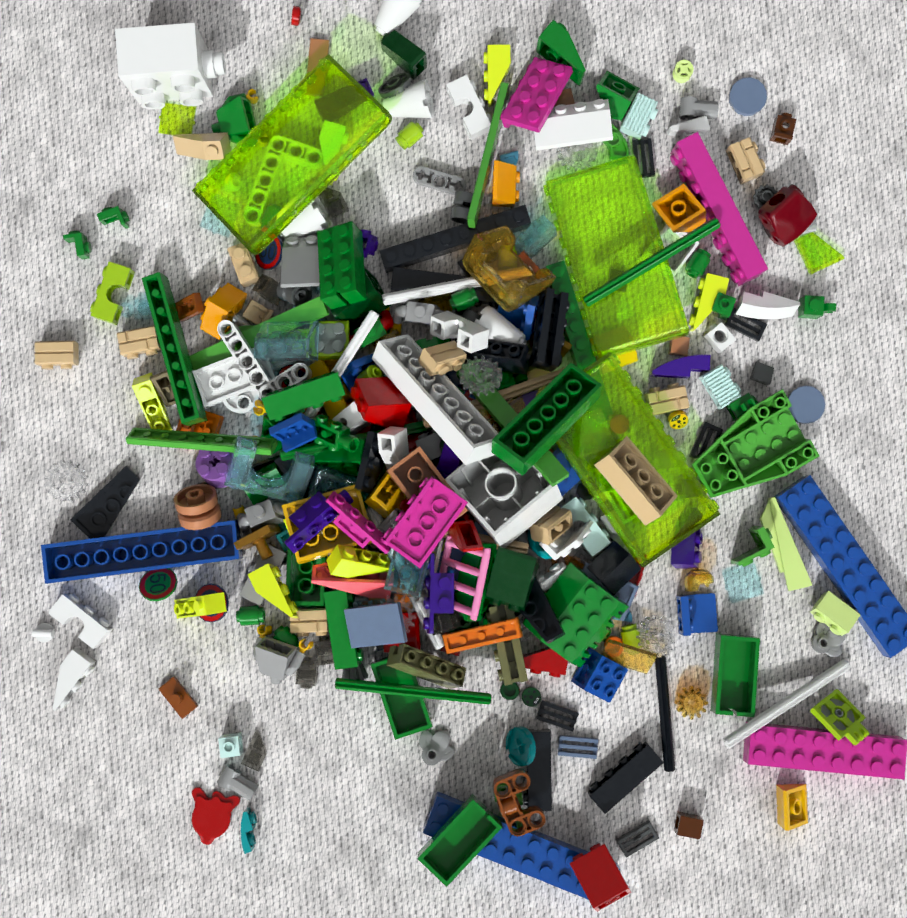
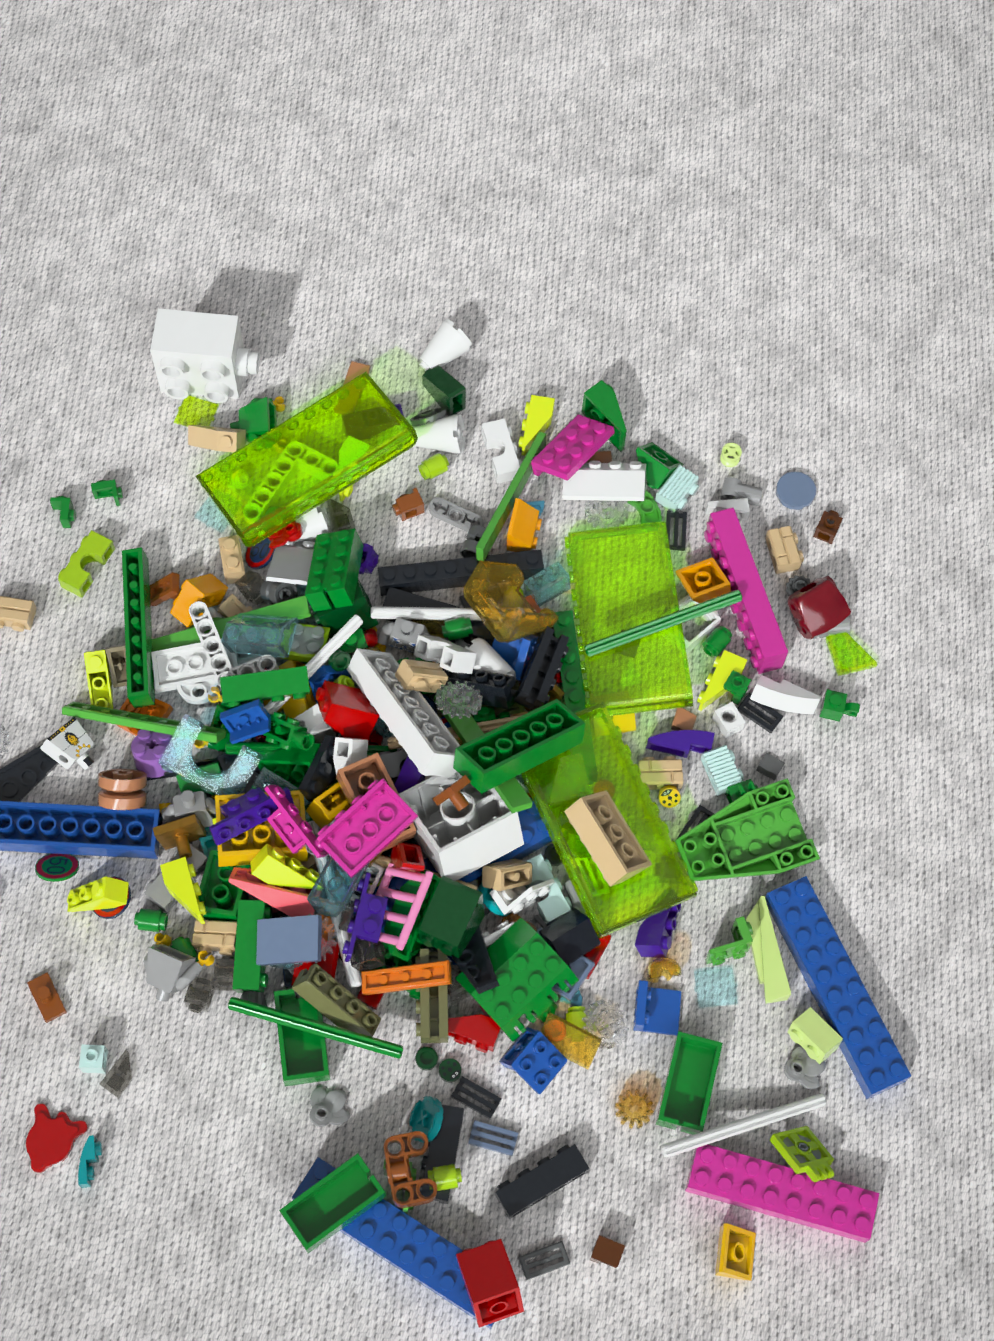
camera: 10 degrees right, 20 degrees down
(138, 342) = (102, 616): tan brick -> none
(140, 309) = (112, 586): clear light blue plate -> none
(141, 473) = (70, 745): none -> torso
(234, 780) = (87, 1101): light grey piece -> none
(291, 233) = (290, 532): none -> red plate
(296, 12) = (341, 338): red tile -> none
(364, 354) = (339, 660): none -> dark green tile
(394, 179) = (409, 505): none -> dark orange brick
(496, 476) = (454, 794): none -> dark orange tile
(546, 796) = (445, 1177): none -> lime brick
(665, 714) = (601, 1118): black axle -> none
(807, 404) = (814, 807): sand blue tile -> none

